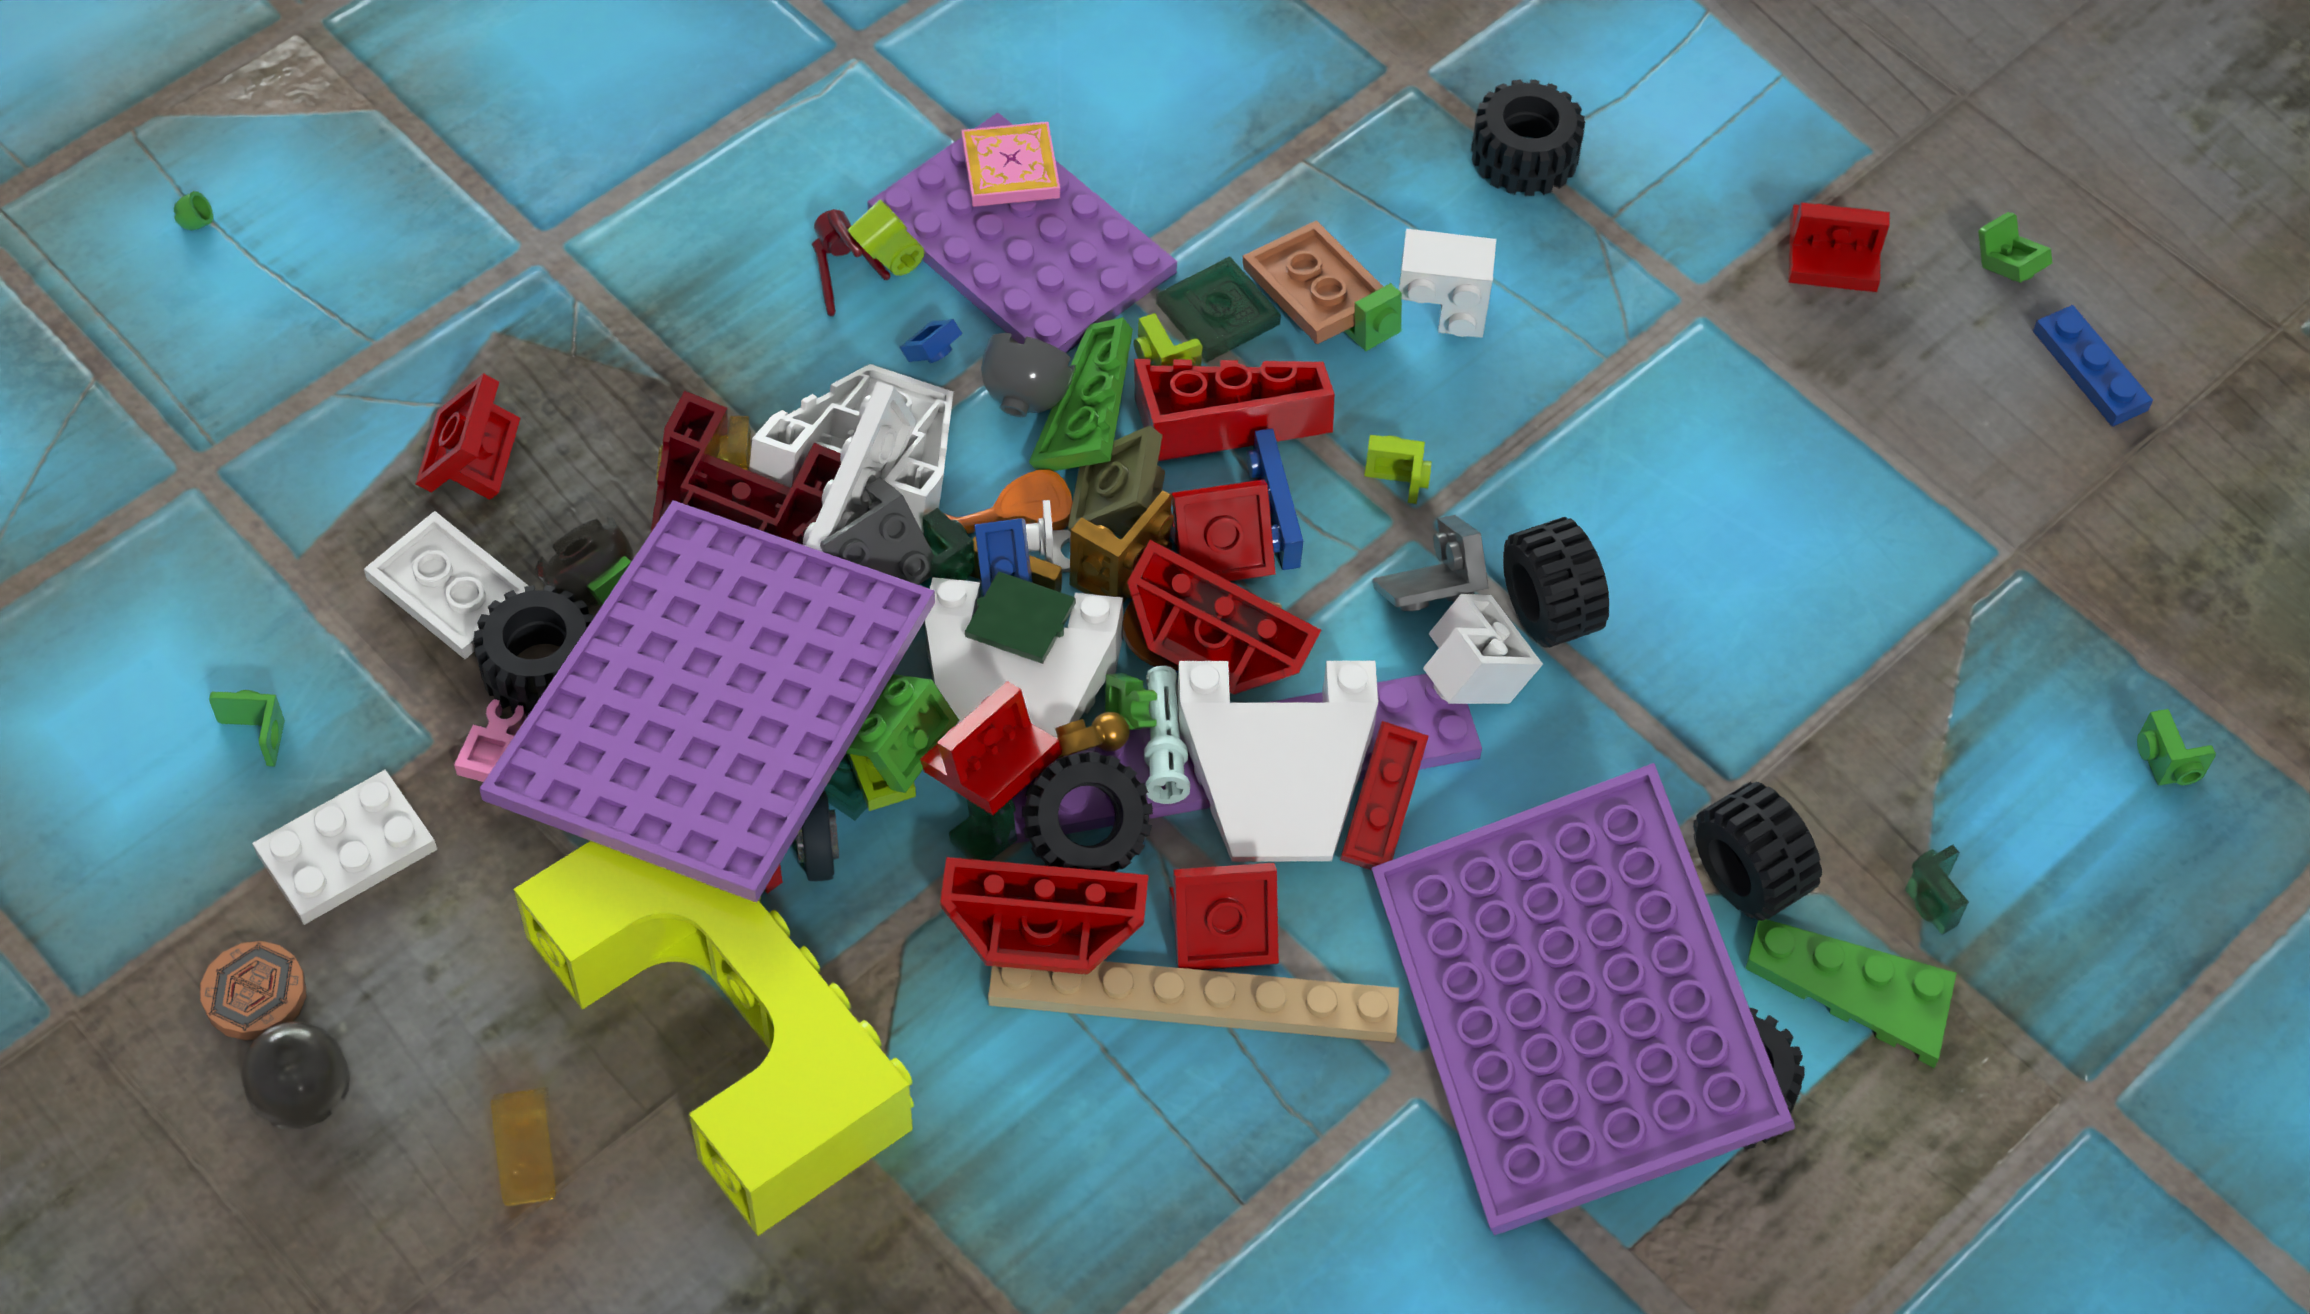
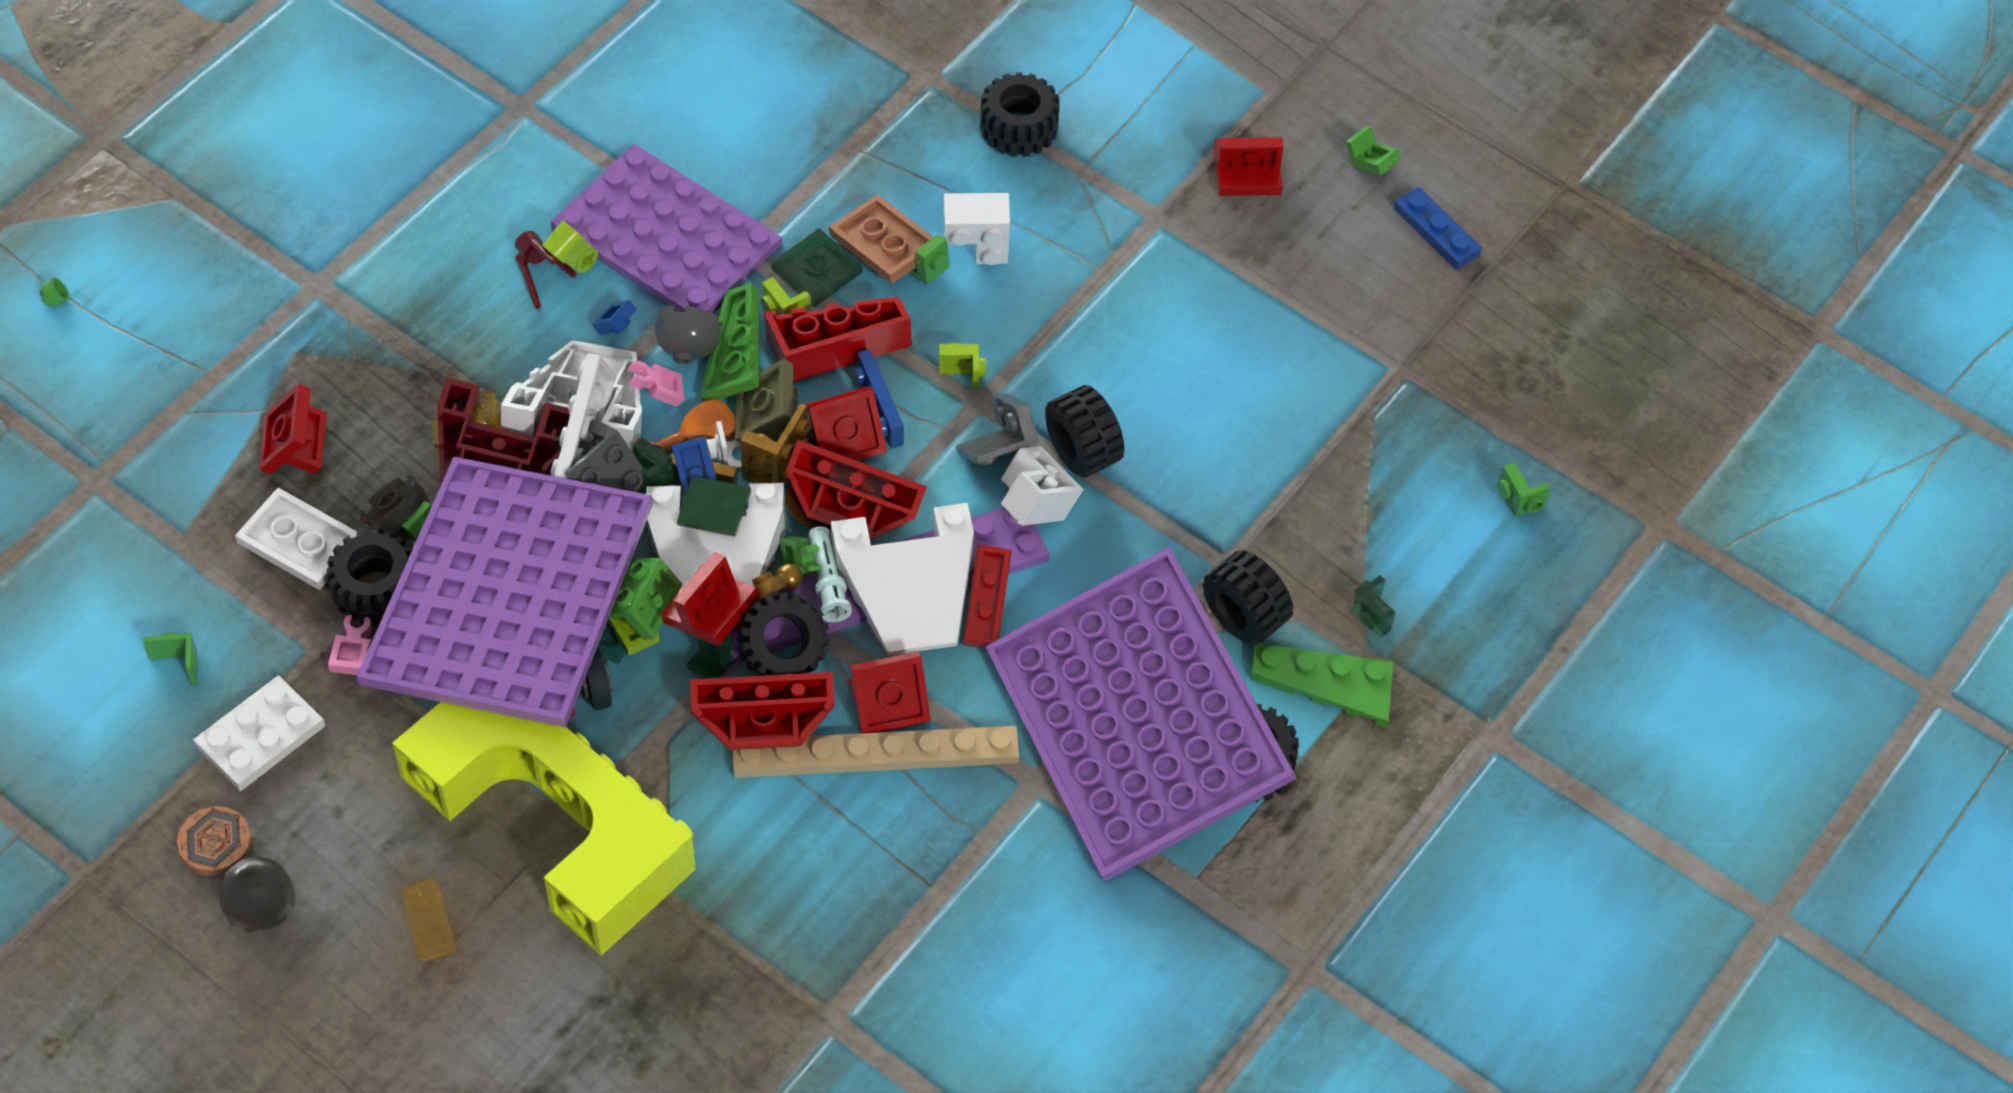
camera: 10 degrees left, 0 degrees up
(978, 436) = (662, 382): none -> bright pink plate
(1010, 164) = (650, 181): tile -> none

